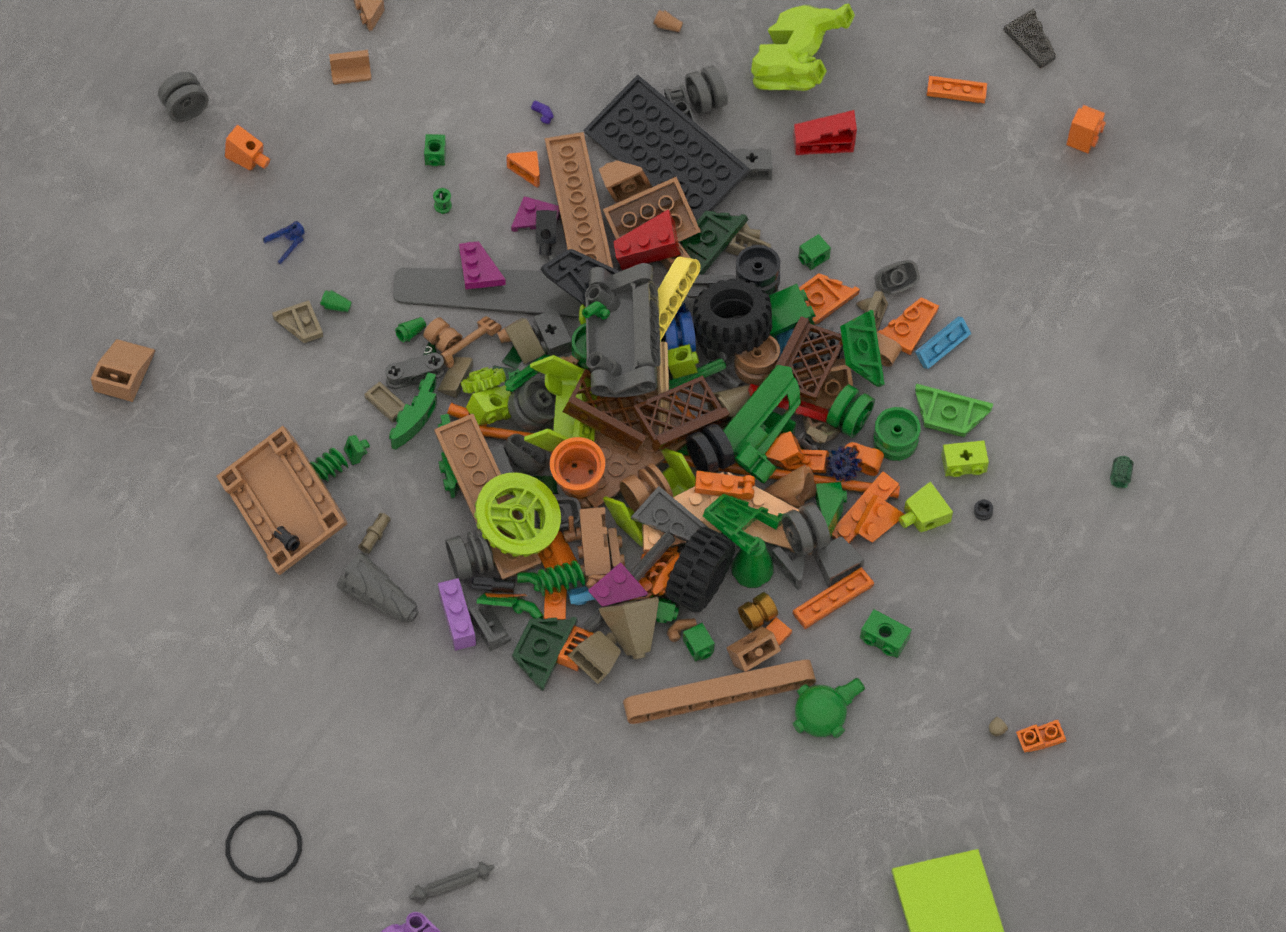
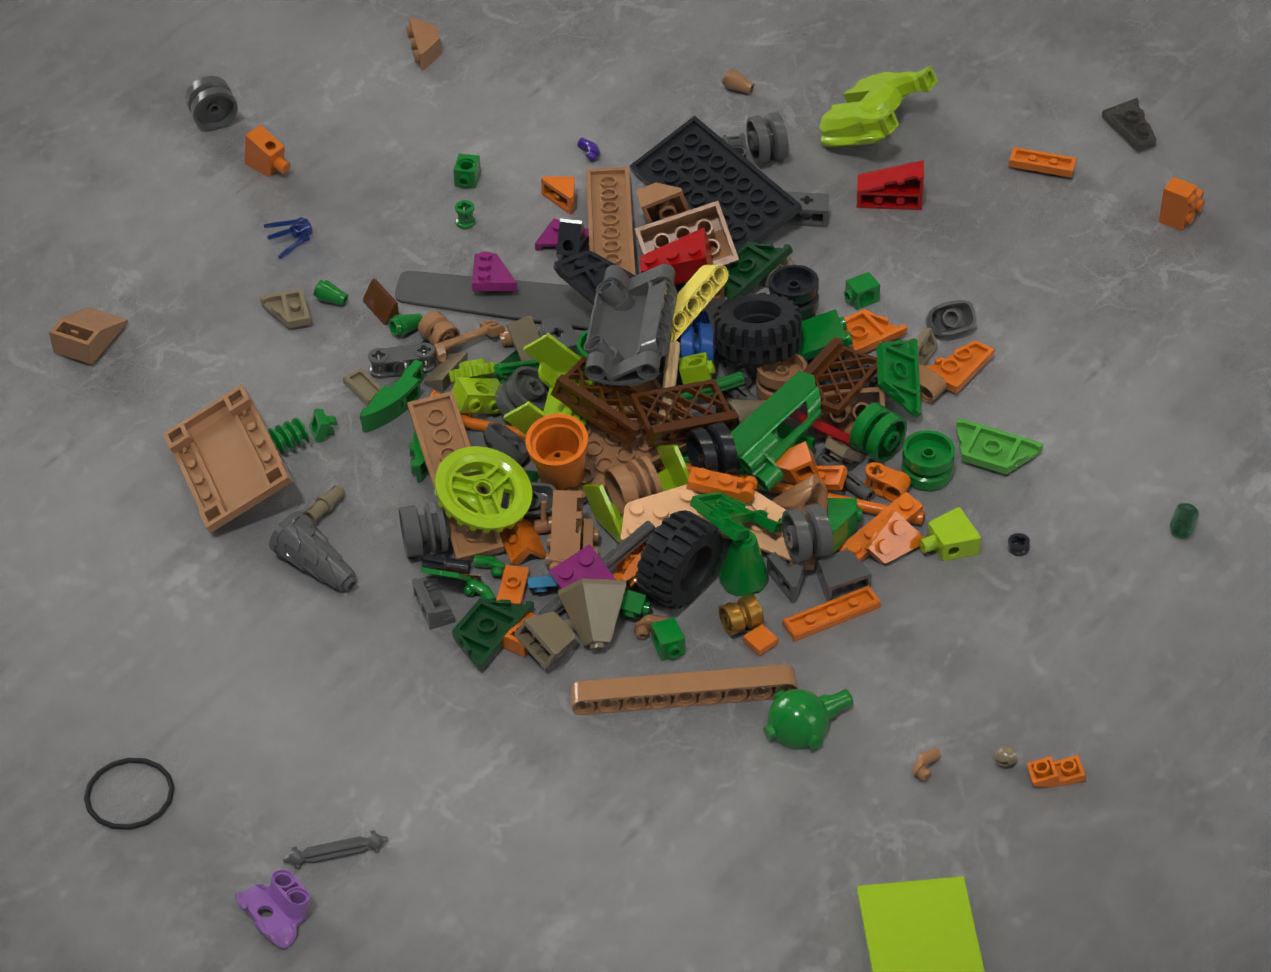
camera: 10 degrees right, 15 degrees down
(290, 541) = (226, 495): black pin -> none
(350, 67) = (393, 95): medium nougat panel -> none
(383, 308) = (380, 302): none -> reddish brown slope
(456, 614) = (398, 586): medium lavender brick -> none
(560, 576) = (521, 558): green piece -> none
(596, 309) = (606, 301): green arm -> none
(667, 515) = (645, 501): dark grey wing -> none
(753, 649) = (729, 649): medium nougat brick -> none
(851, 464) = (862, 488): clear blue gear -> none
(879, 623) = (886, 651): green brick -> none
(931, 737) = (923, 760): none -> medium nougat arm
(943, 342) = (994, 383): dark azure plate -> none
(964, 458) = (1003, 492): lime brick -> none

